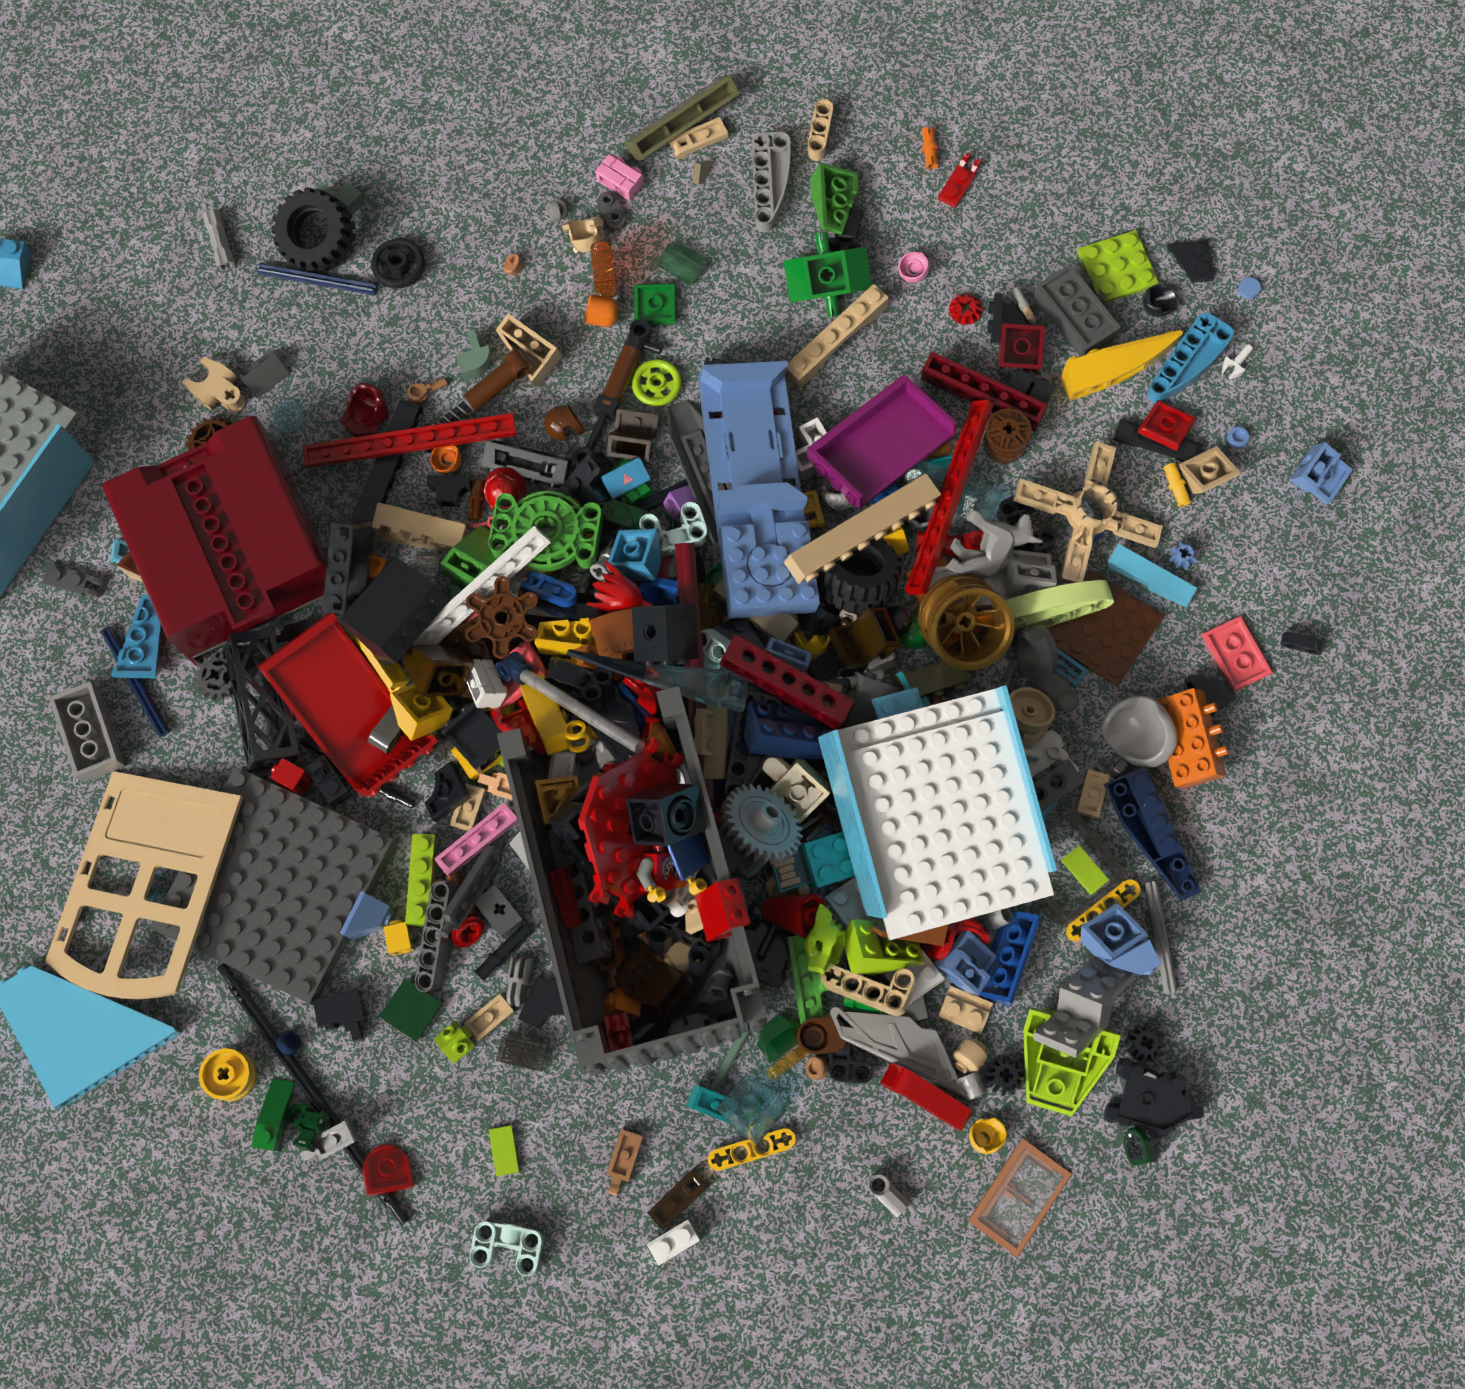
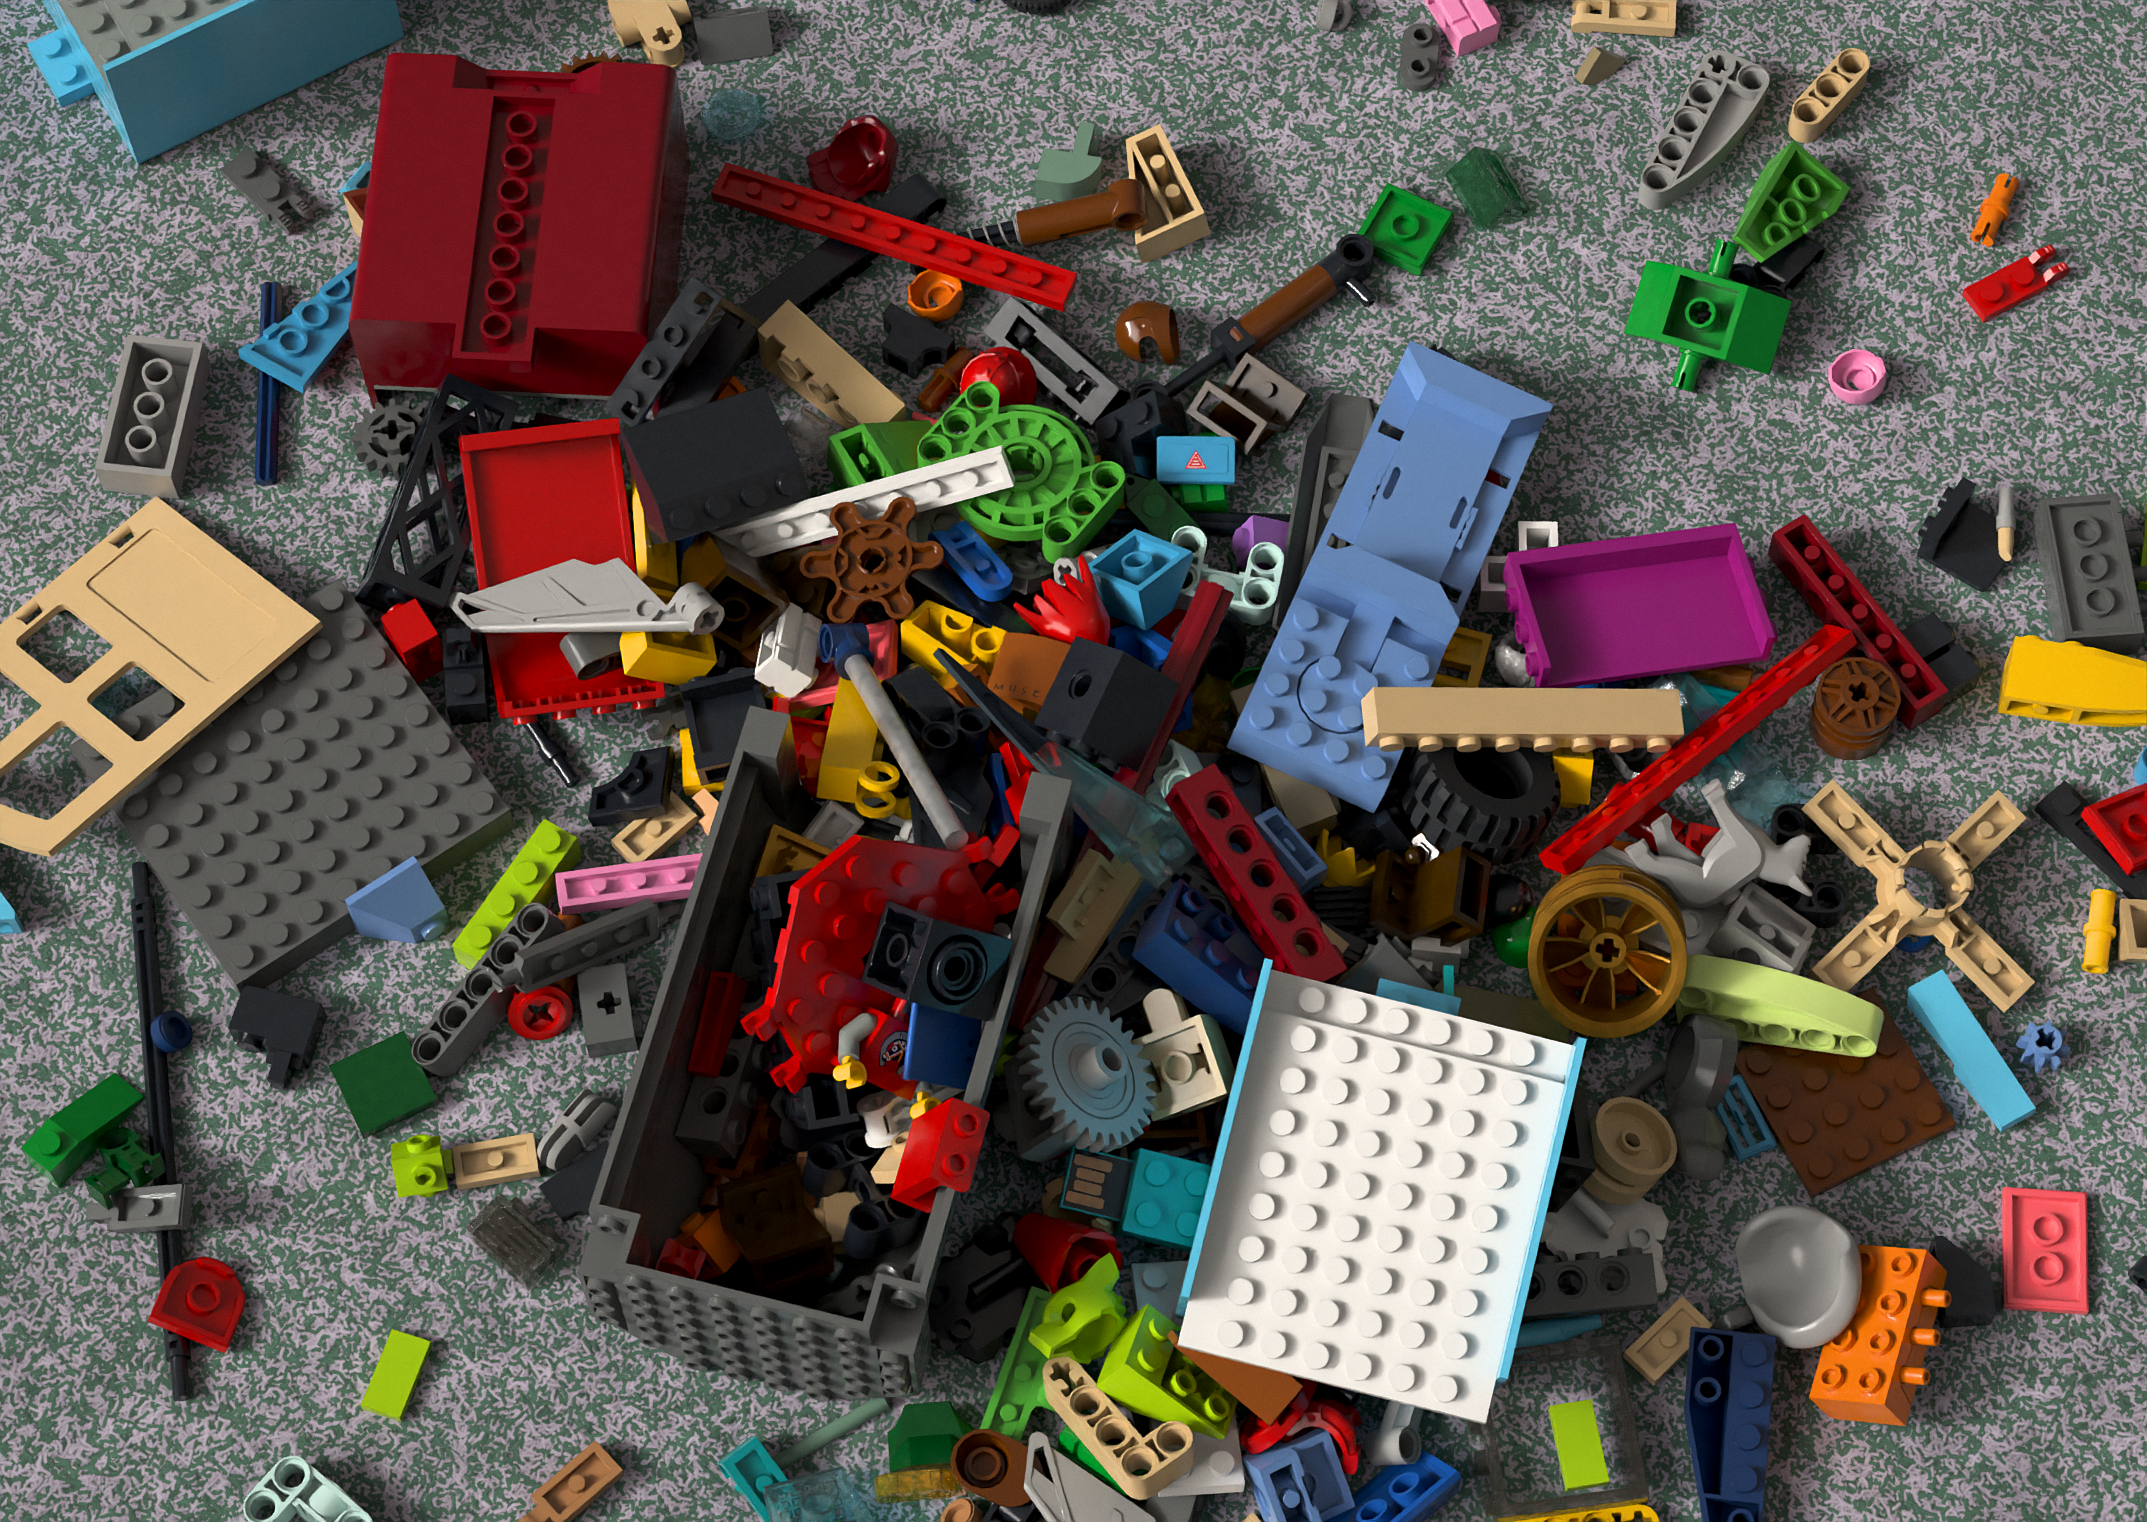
camera: 25 degrees right, 10 degrees down
(239, 1068) = (52, 1027): yellow wheel -> none
(371, 713) = (587, 599): none -> light grey wing
(398, 938) = (429, 966): yellow brick -> none
(418, 393) = (953, 178): medium nougat plate -> none
(503, 951) = (568, 1077): black pin -> none
(513, 264) = (1215, 62): nougat piece -> none
(584, 233) = (1355, 70): tan helmet -> none
(601, 311) = (1311, 196): orange helmet -> none
(603, 269) = (1349, 133): clear orange gear -> none
(644, 371) = (1327, 320): lime plate -> none
(666, 744) = (1000, 867): reddish brown slope -> none
(854, 318) = (1721, 403): tan arch -> none
(967, 317) = (1902, 497): red gear -> none
(1021, 347) = (1959, 582): dark red brick -> none

